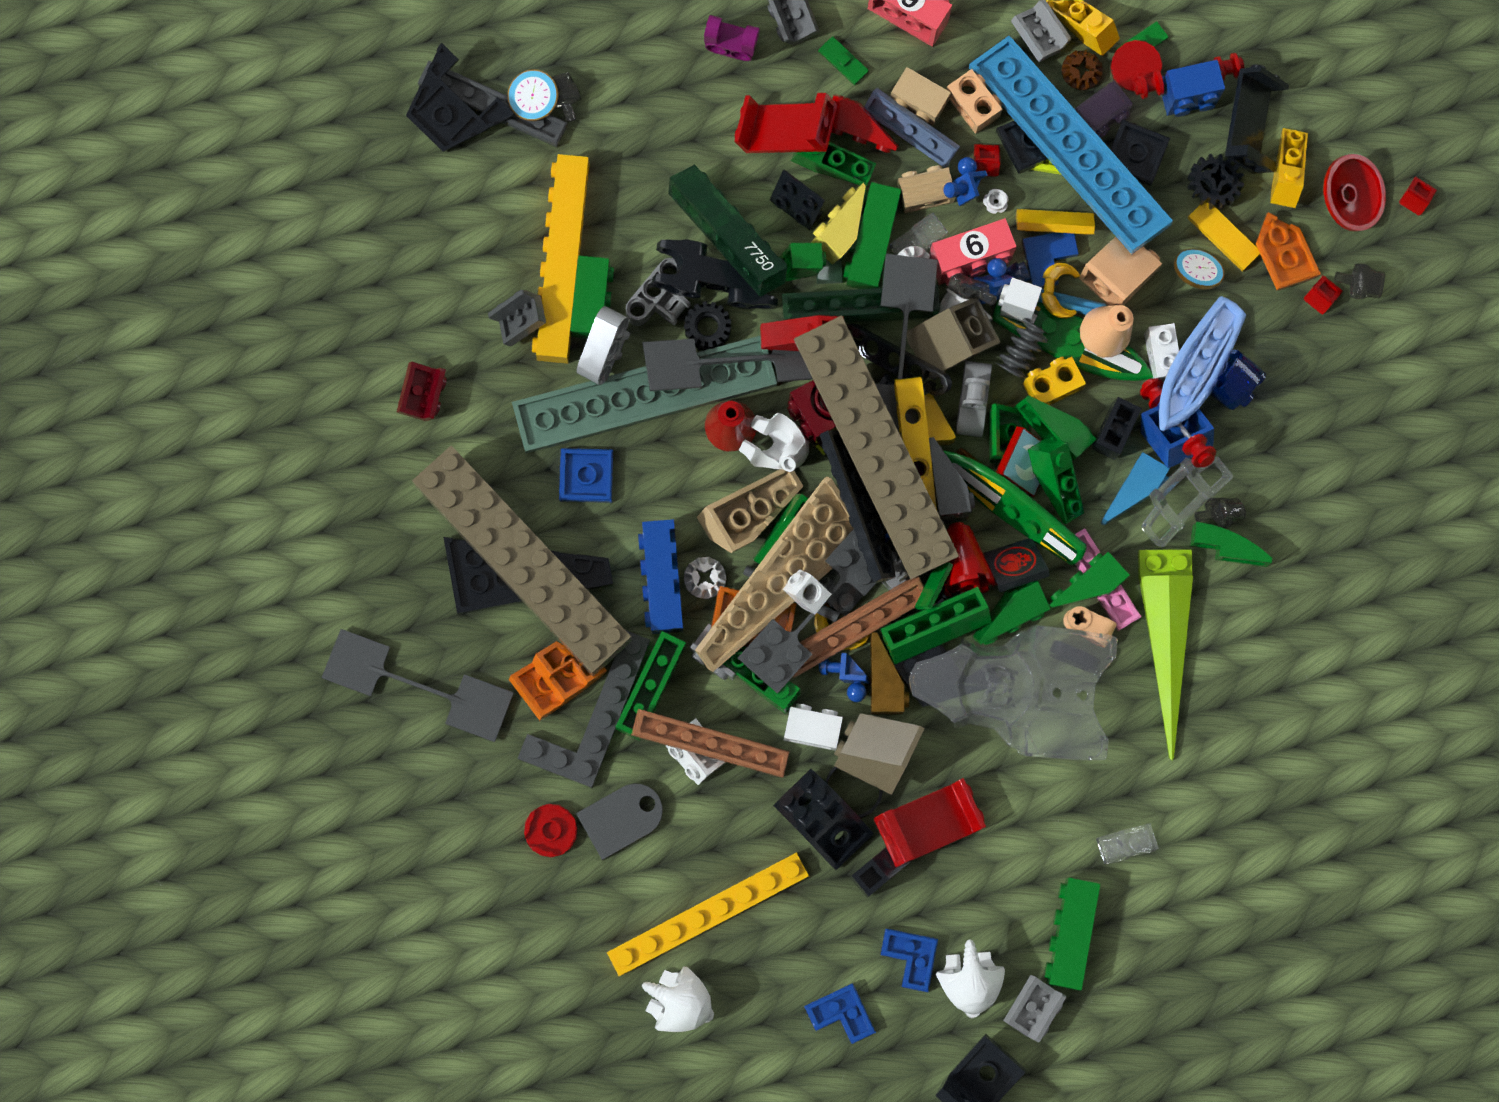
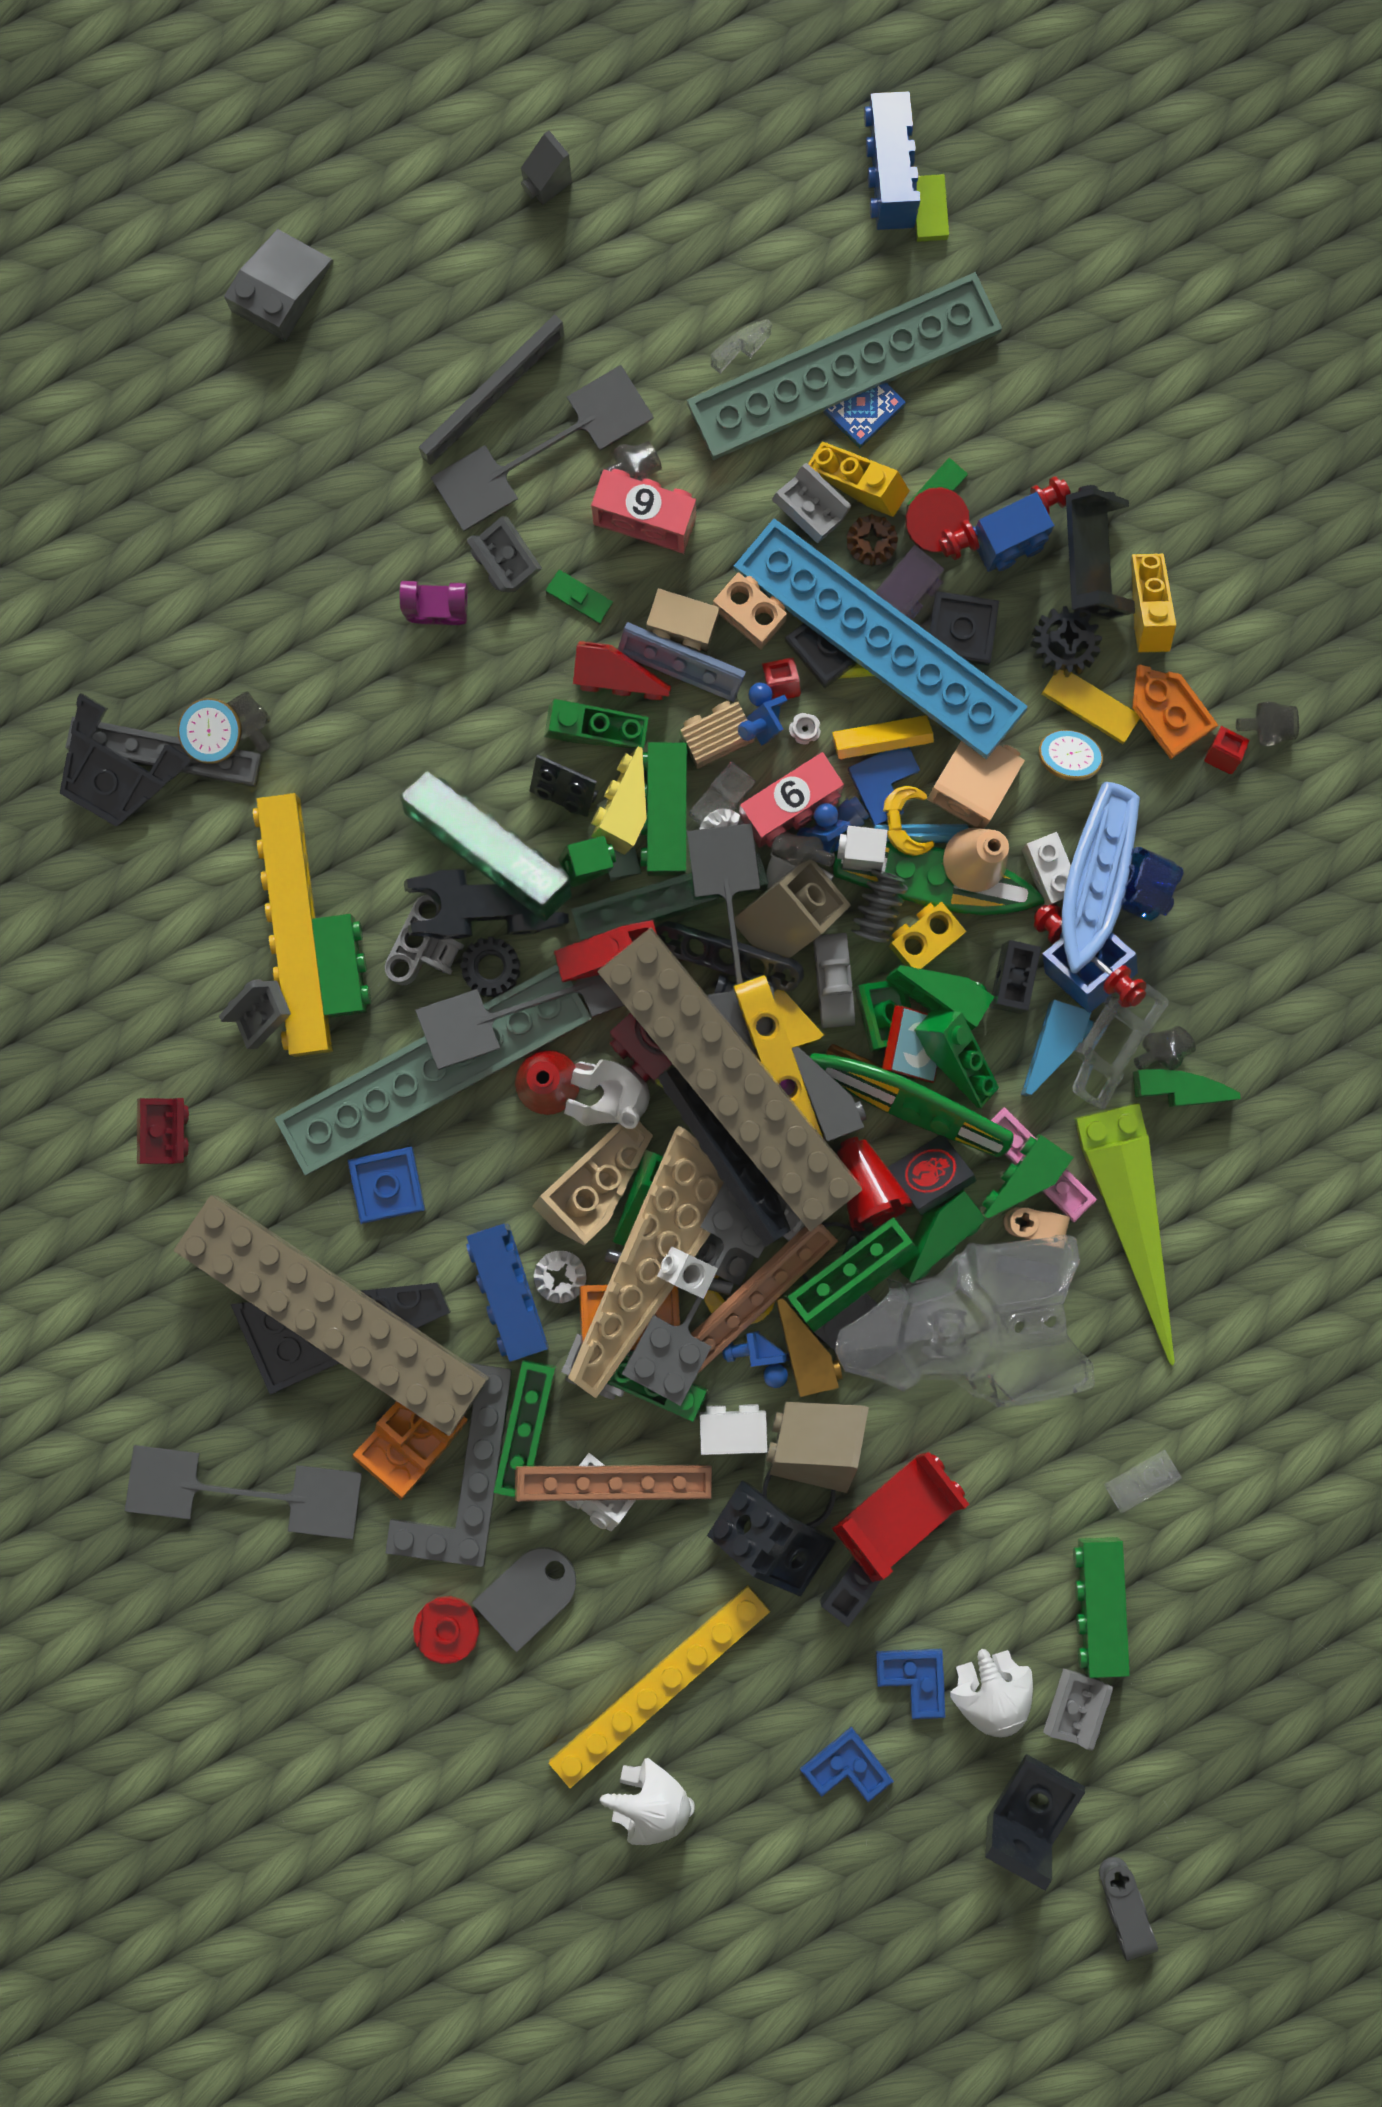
camera: 10 degrees left, 5 degrees up
(603, 345) = (368, 1025): light grey piece -> none
(786, 126) = (527, 697): red panel -> none
(933, 586) = (839, 1232): green piece -> none
(1354, 192) = (1238, 616): red dish -> none
(1417, 196) = (1314, 601): red slope -> none

